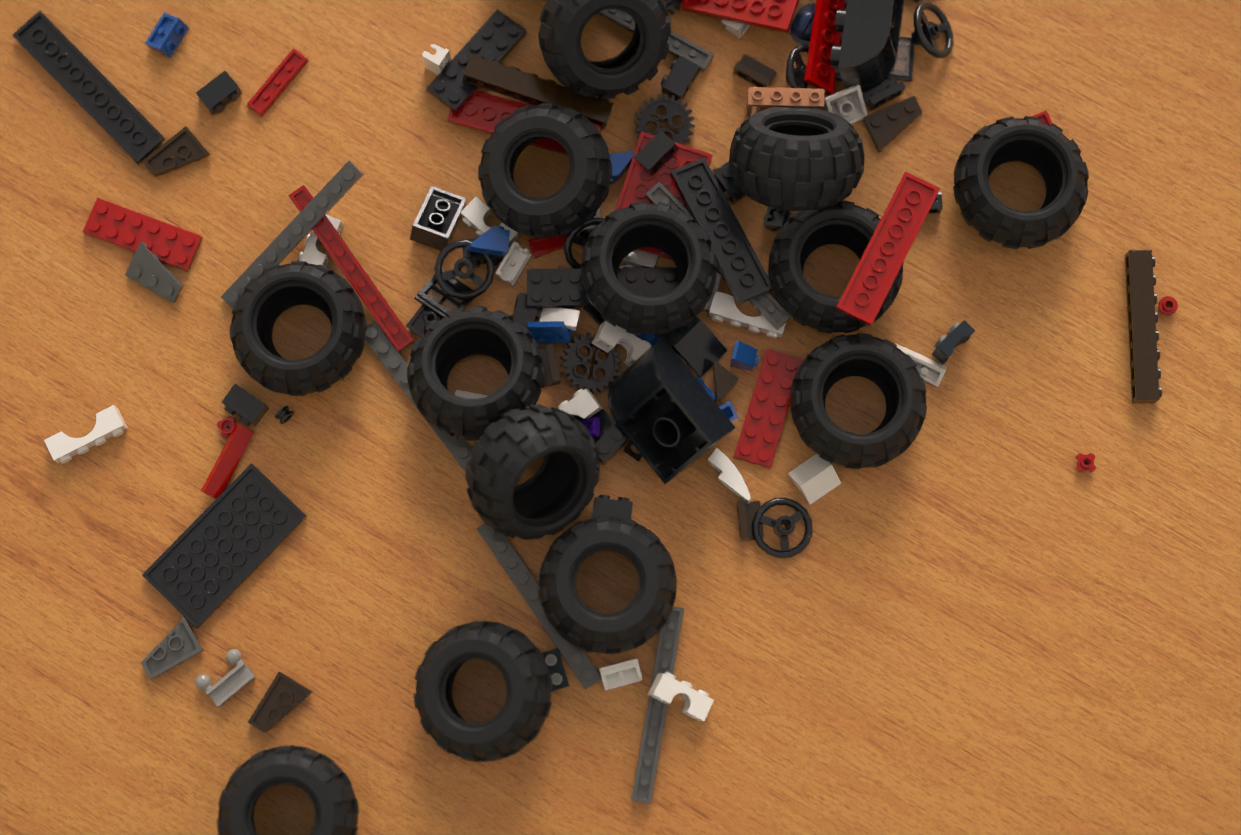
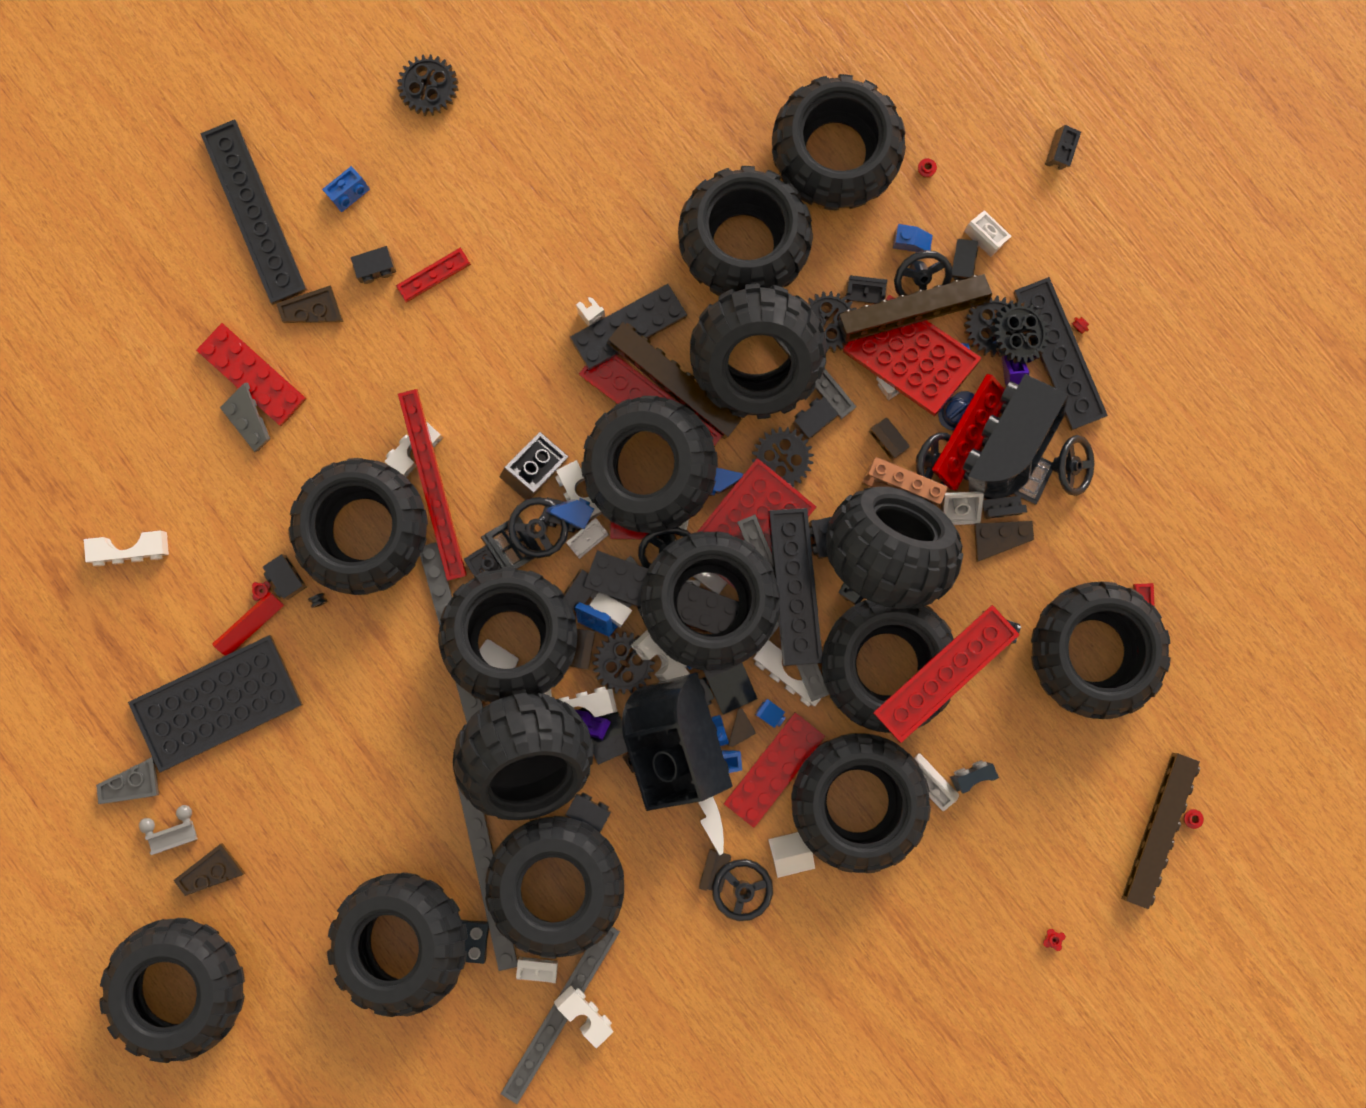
camera: 15 degrees right, 5 degrees up
(297, 229) = (392, 430): dark grey plate -> none
(656, 153) = (763, 485): black hinge -> none

